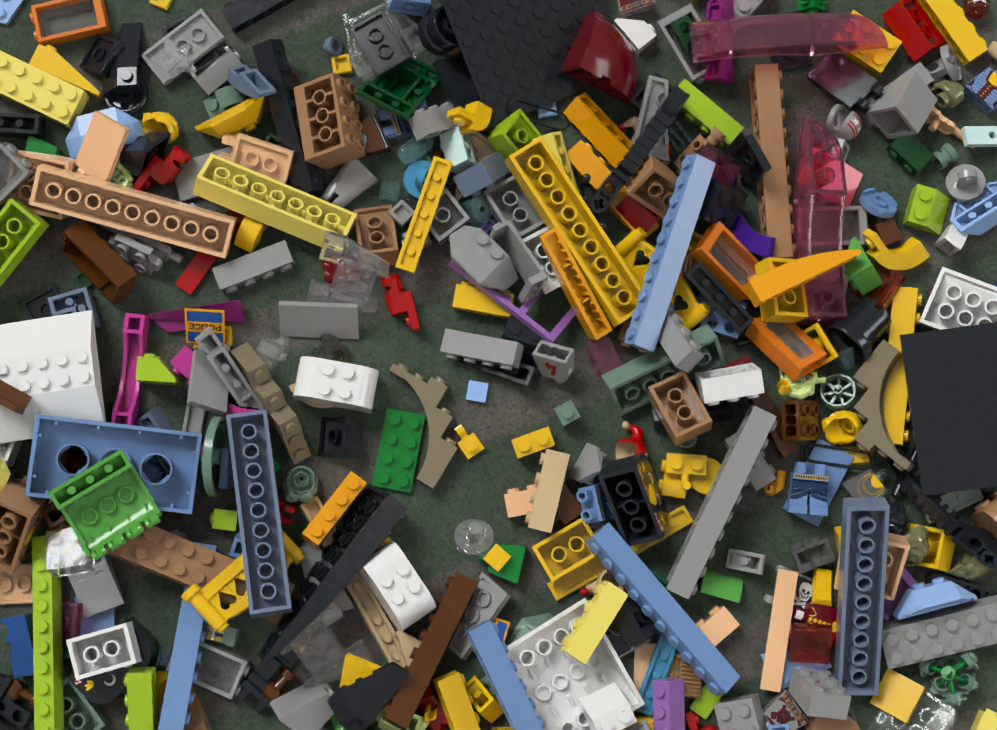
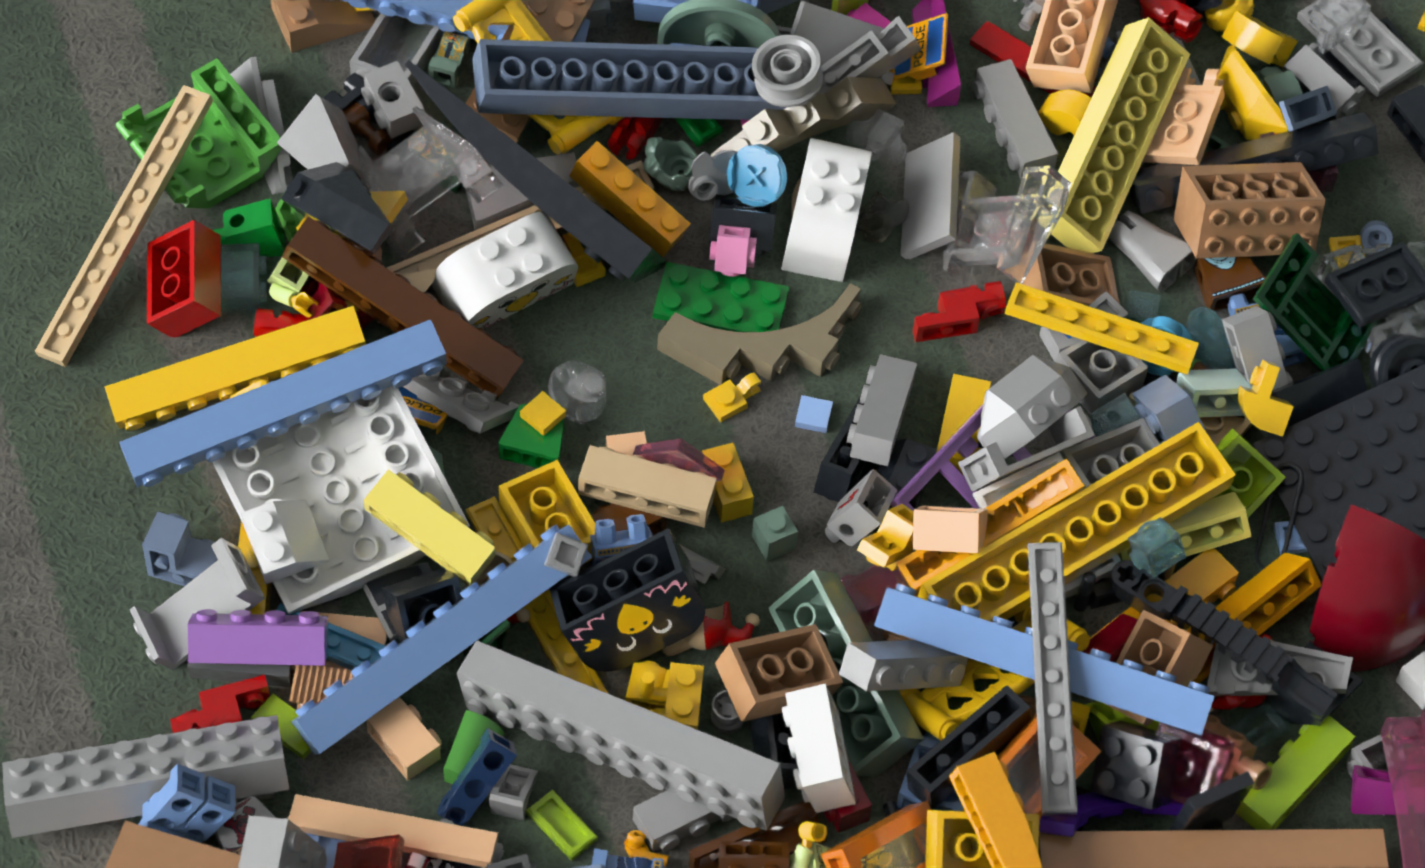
camera: 85 degrees right, 25 degrees down
(189, 112) = (1259, 39): none -> yellow brick
(243, 420) = (772, 76): none -> light grey wheel
(258, 678) = (387, 84): none -> light grey brick
(312, 459) = (711, 172): none -> light grey plate
(316, 429) = (757, 175): none -> dark azure tile
(368, 443) = (733, 250): none -> bright pink brick
(532, 472) = (681, 455): none -> clear pink tile
(579, 341) = (892, 540): none -> yellow brick
(582, 307) = (949, 529): none -> light nougat brick
(588, 185) = (1156, 547): none -> clear light blue brick
(612, 538) = (566, 554): none -> light grey tile
(687, 247) = (1052, 679): none -> light grey tile
(745, 581) = (477, 778): none -> dark blue leg
(760, 531) = (562, 825): none -> lime tile

